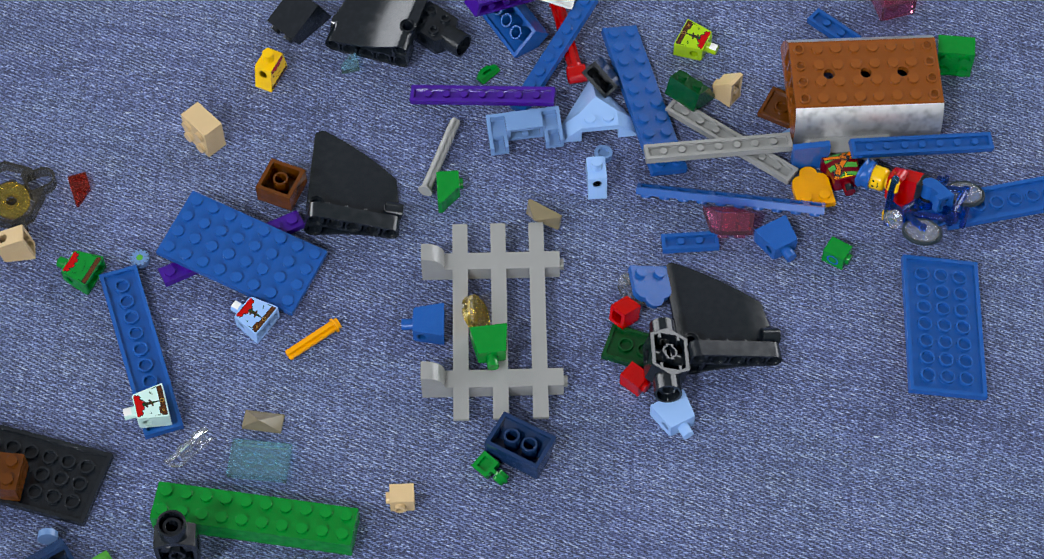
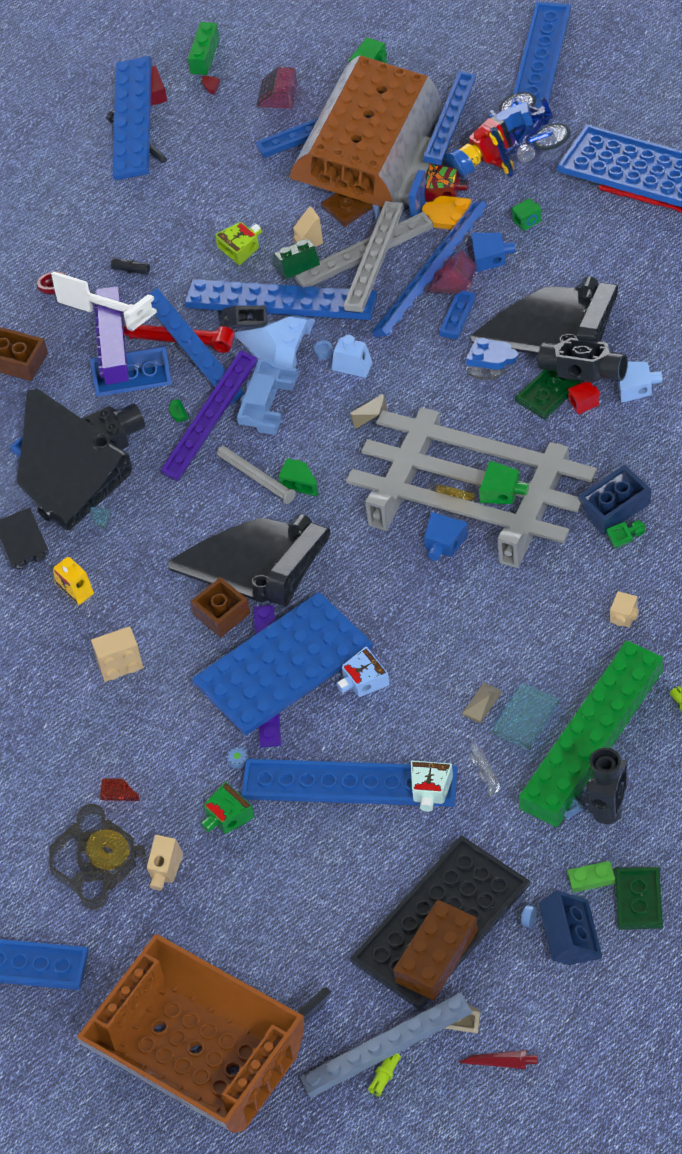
camera: 60 degrees left, 5 degrees down
(314, 338) = (405, 614): light orange axle -> none
(624, 312) = (511, 381): red brick -> none

